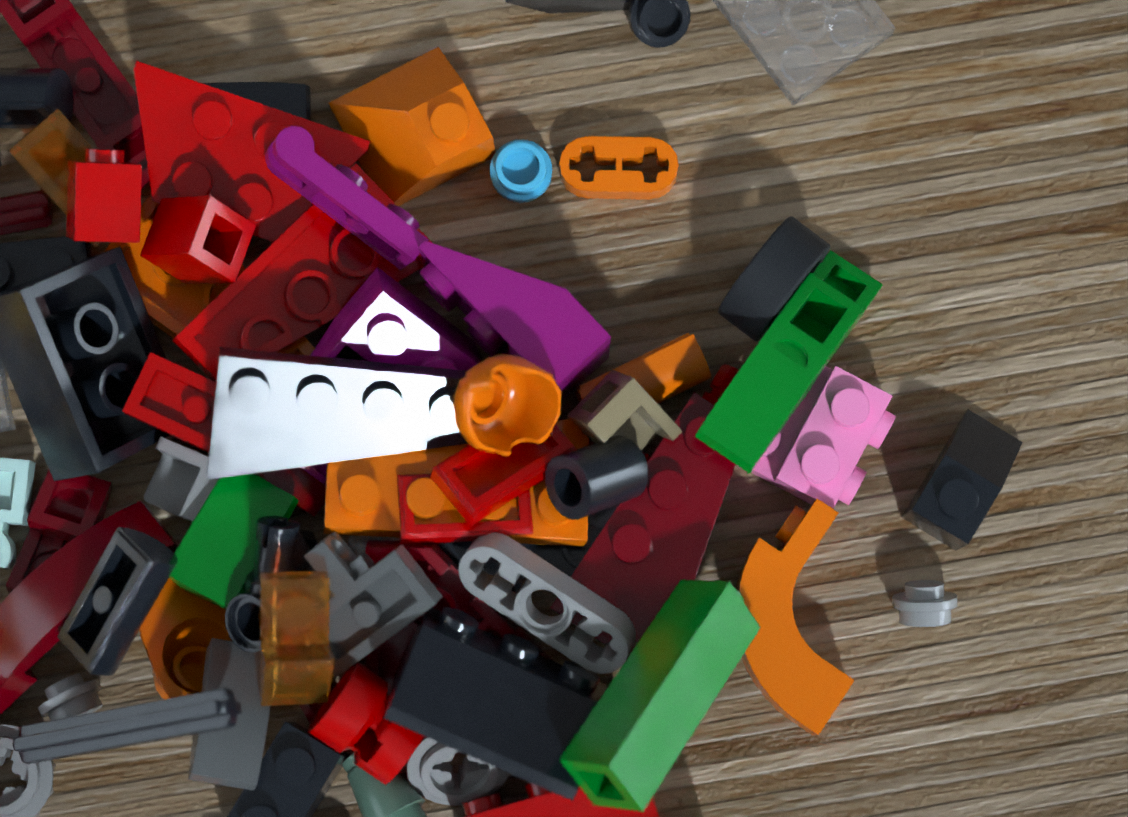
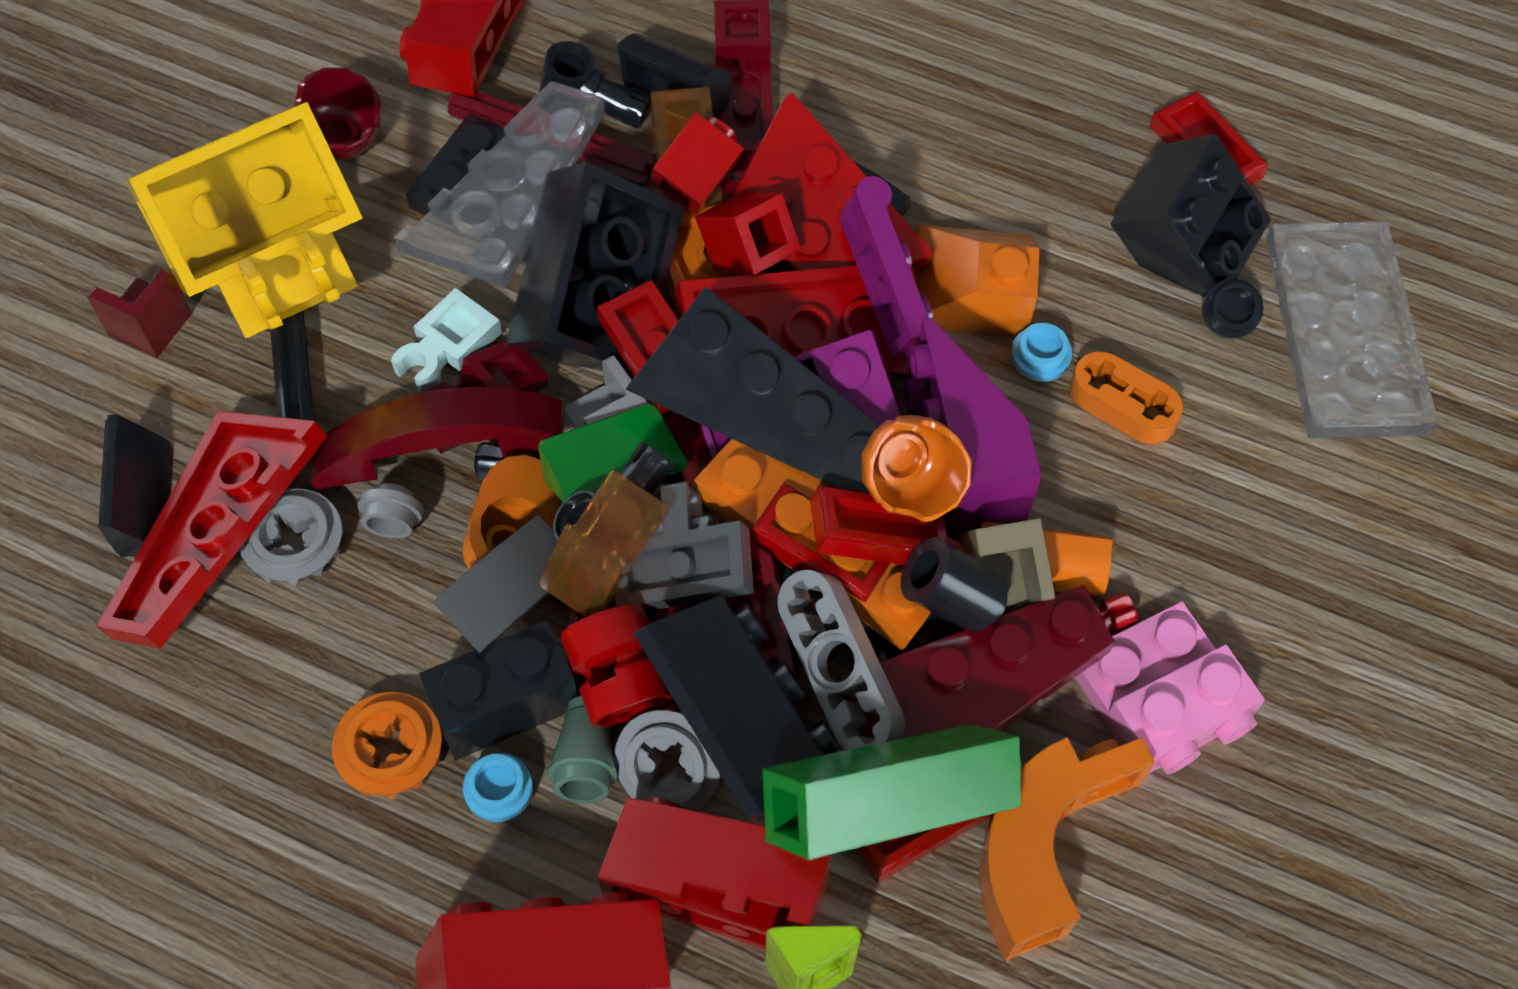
camera: 30 degrees right, 20 degrees down
(117, 600) = (484, 438): black brick -> none
(128, 726) = (420, 534): black axle -> none
(773, 278) = (1212, 540): black tyre -> none
(788, 361) = (1182, 603): green slope -> none
(924, 604) = (1188, 903): light grey plate -> none
(963, 481) = (1283, 821): black slope -> none

